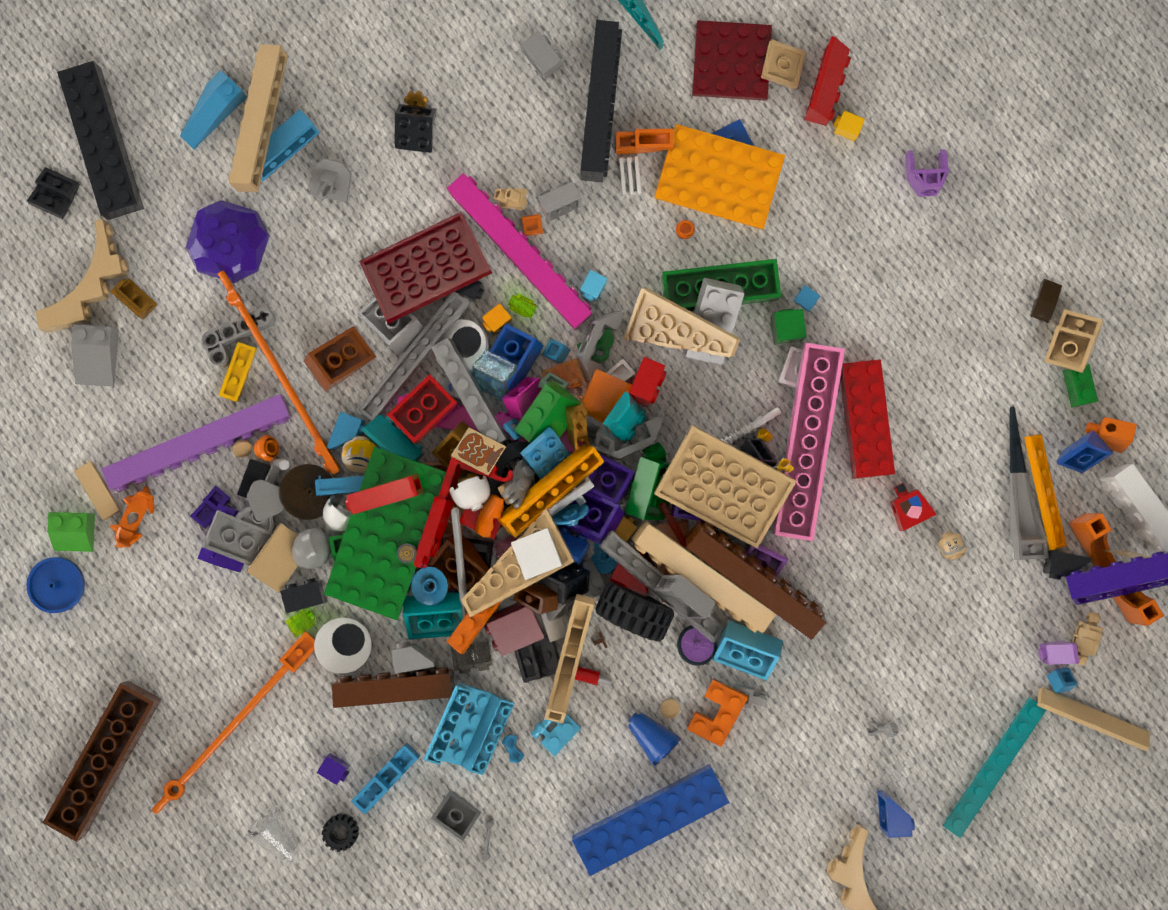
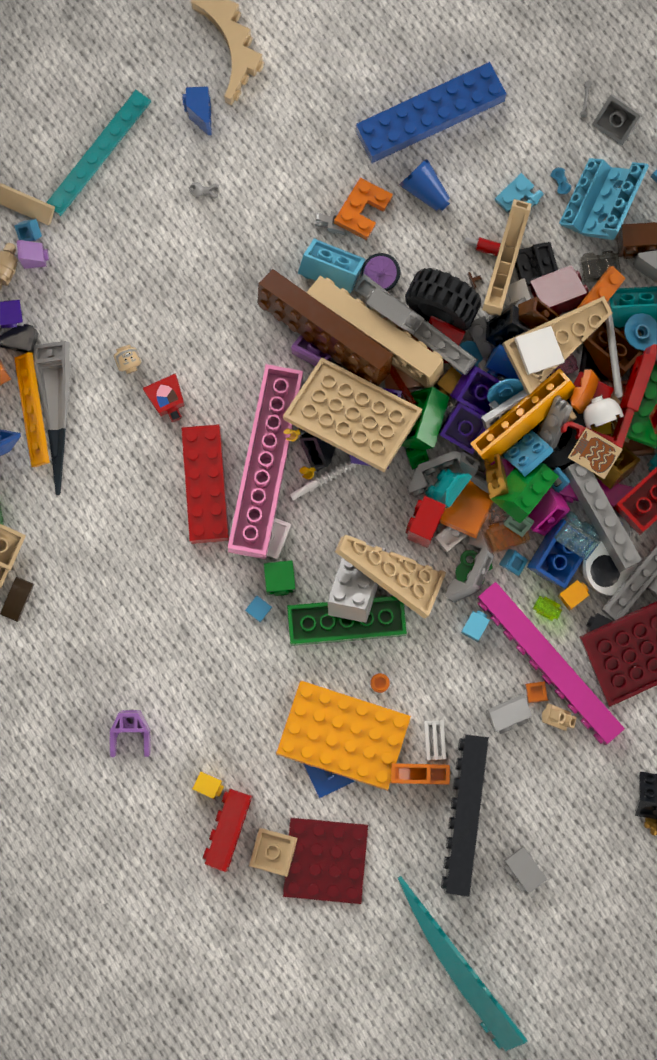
camera: 175 degrees left, 5 degrees down
(670, 708) = (408, 214): tan piece -> none

